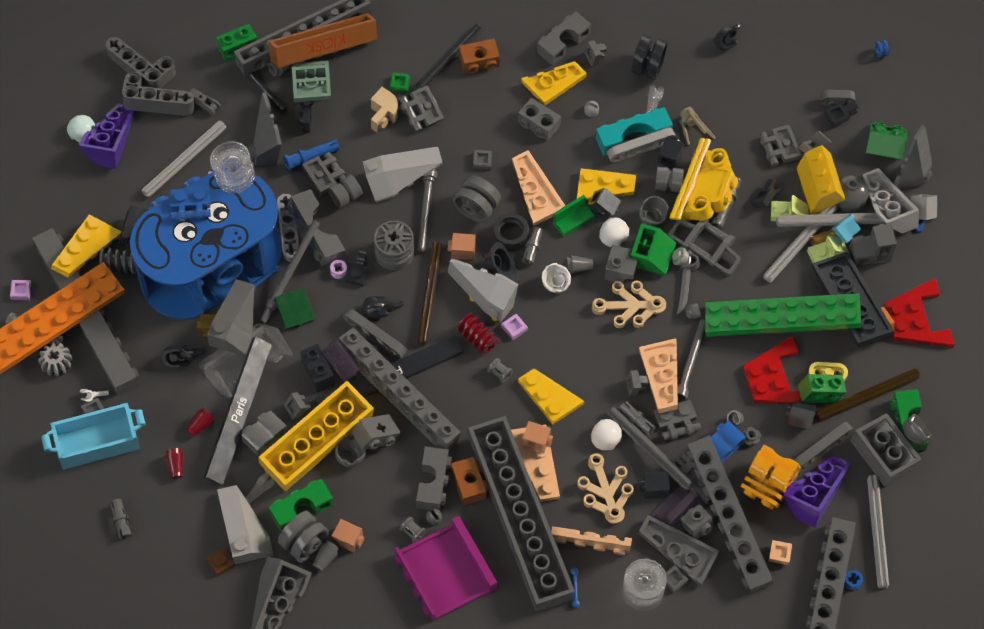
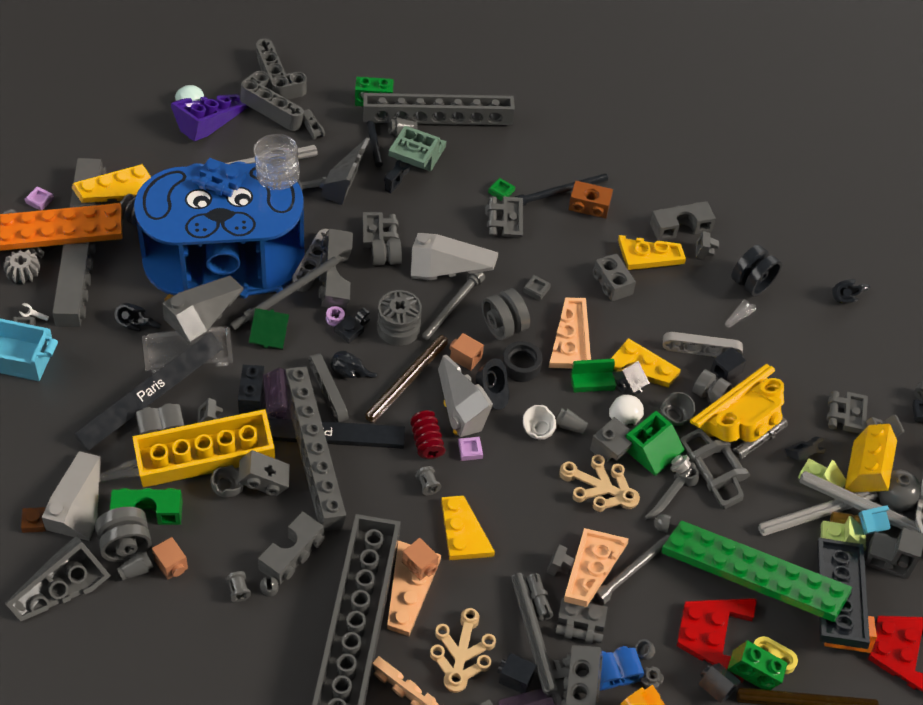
camera: 25 degrees right, 10 degrees down
(174, 461) = (59, 407): dark red cone -> none
(199, 422) = (109, 383): dark red cone -> none
(303, 156) = (361, 206): blue pin -> none
(323, 40) = (450, 120): dark orange brick -> none
(386, 107) = (471, 203): tan brick -> none
(446, 570) = (242, 645): magenta panel -> none
(473, 491) = (326, 556): dark orange brick -> none
(532, 246) = (535, 384): dark grey pin -> none
(591, 109) = (670, 293): light grey hinge -> none
(606, 434) = (497, 596): white hair -> none
(647, 123) = (693, 322): teal arch -> none
(690, 118) = (767, 346): dark tan plant -> none

